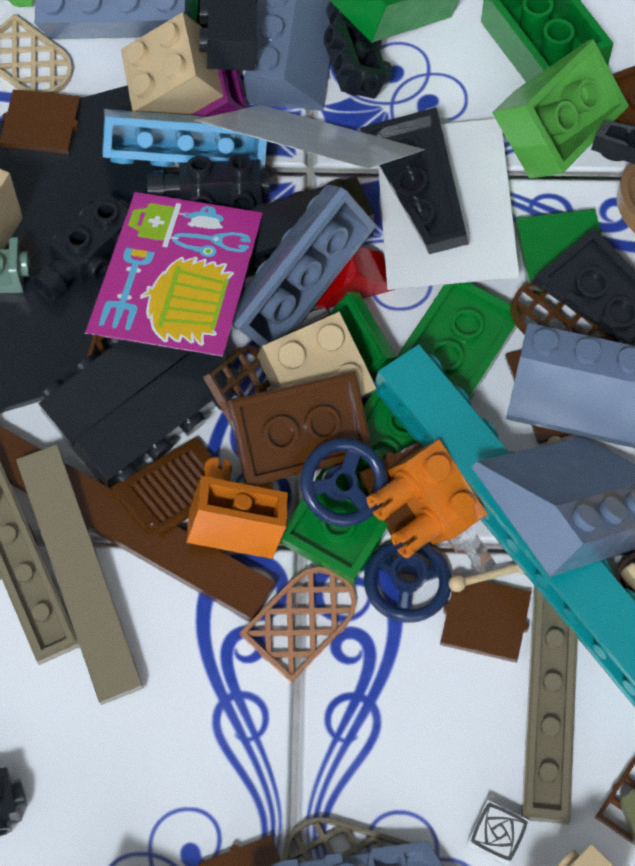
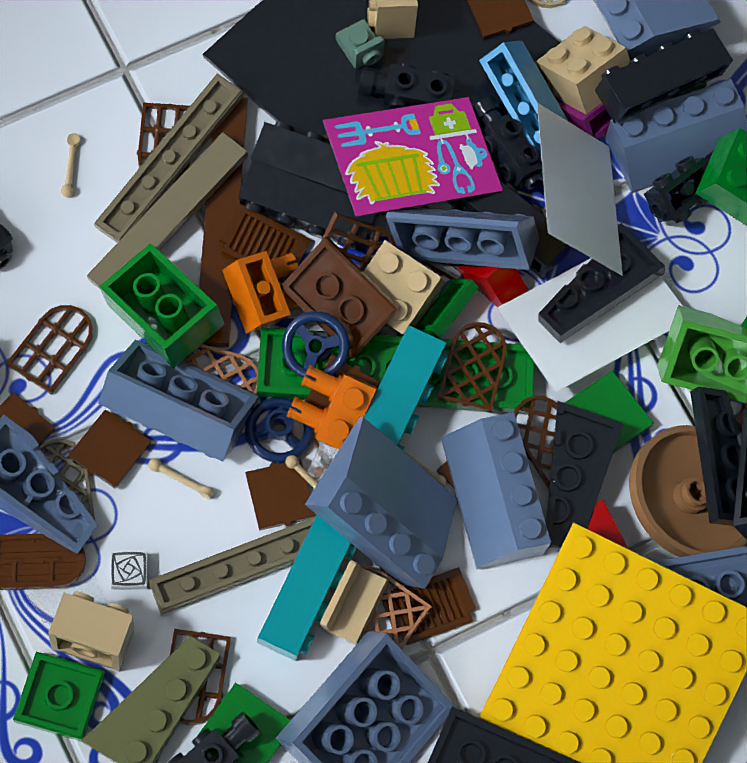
camera: 55 degrees right, 5 degrees up
(181, 794) = (53, 361): none -> reddish brown window
(194, 628) = (162, 305): none -> green brick
(318, 671) = (177, 401): none -> sand blue slope
(332, 782) = (110, 448): none -> reddish brown piece
(380, 738) = (156, 465): none -> tan hinge
(498, 349) = (471, 379): none -> reddish brown window

